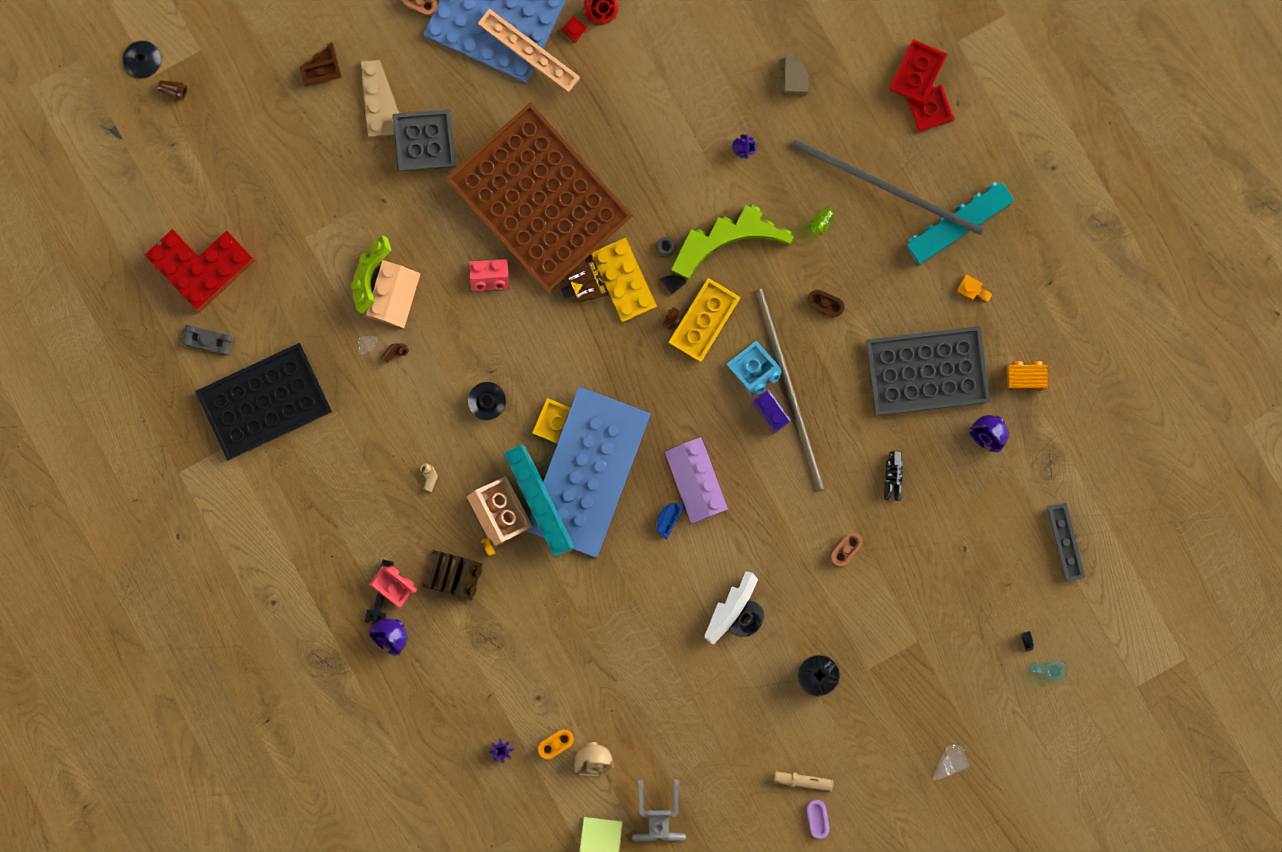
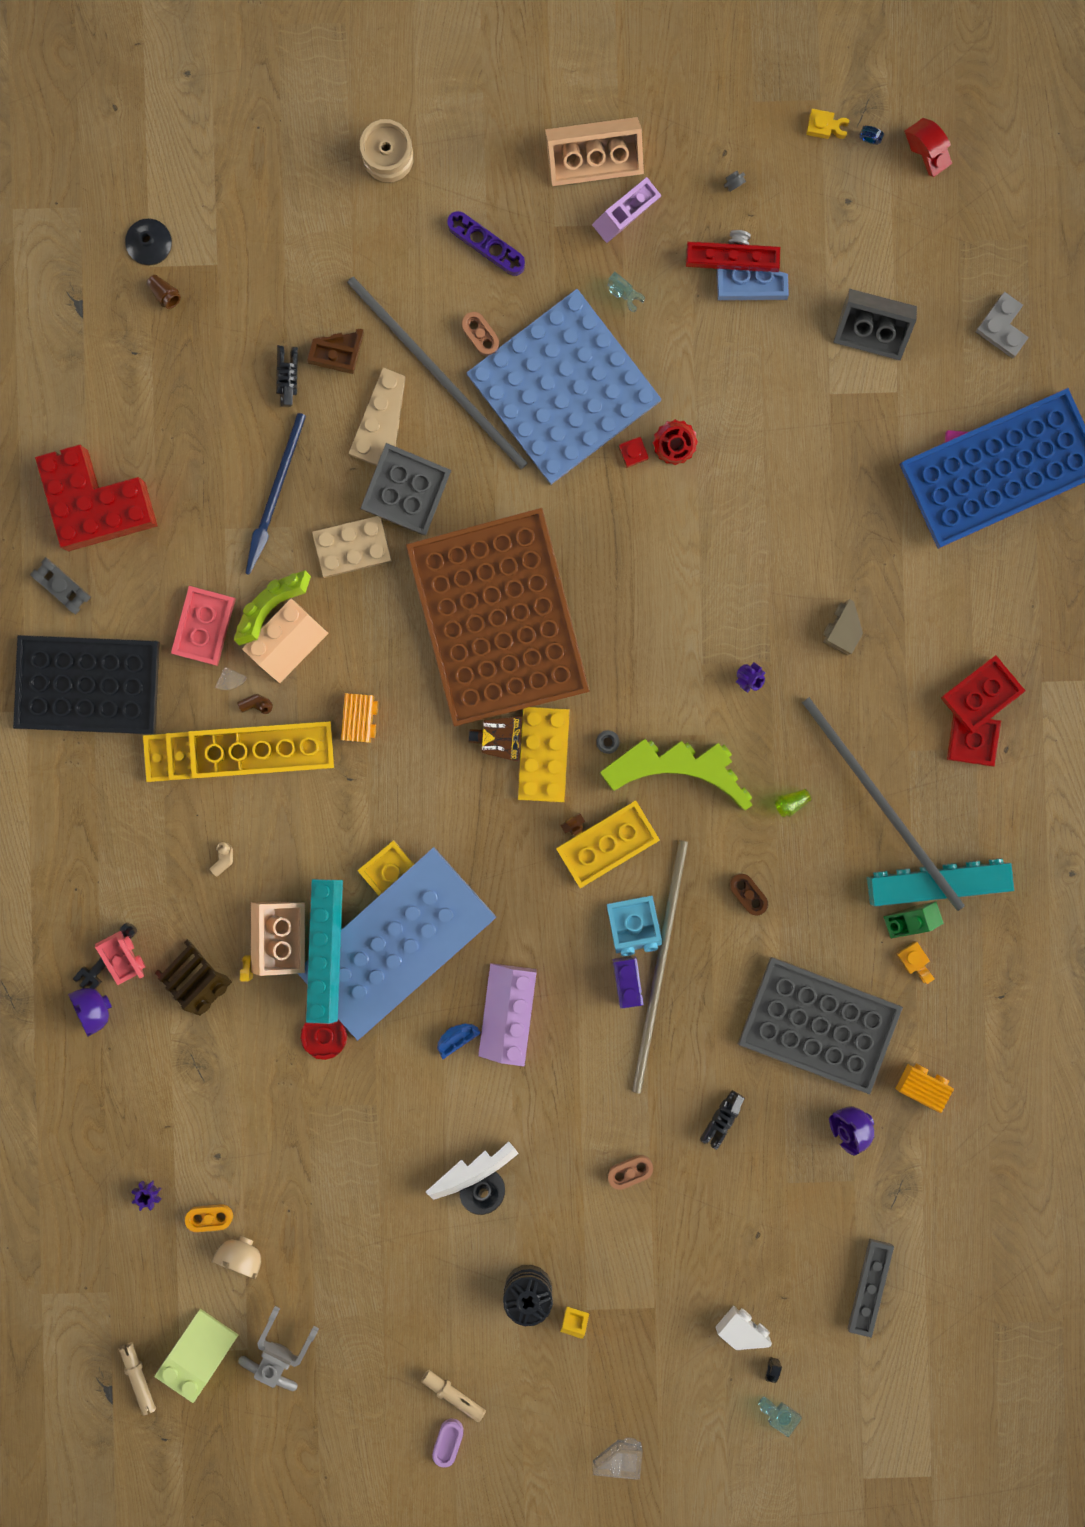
camera: 30 degrees right, 5 degrees up
(294, 103) = (286, 376): none -> black hinge
(327, 314) = (203, 625): none -> coral plate
(334, 228) = (260, 535): none -> dark blue piece
(400, 392) = (238, 751): none -> yellow slope
(401, 45) = (437, 373): none -> dark grey piece
(405, 202) = (352, 546): none -> tan plate
(475, 323) = (358, 718): none -> light orange brick
(479, 394) = (314, 809): black dish -> none
(489, 275) = (400, 673): coral bracket -> none
(529, 50) = (570, 449): light nougat plate -> none
(571, 568) = (324, 1040): none -> red tile
(673, 283) = (595, 785): black tile -> none
(863, 680) = (574, 1322): none -> yellow plate
(955, 259) = (914, 920): none -> green slope
(987, 623) = (741, 1332): none -> white slope

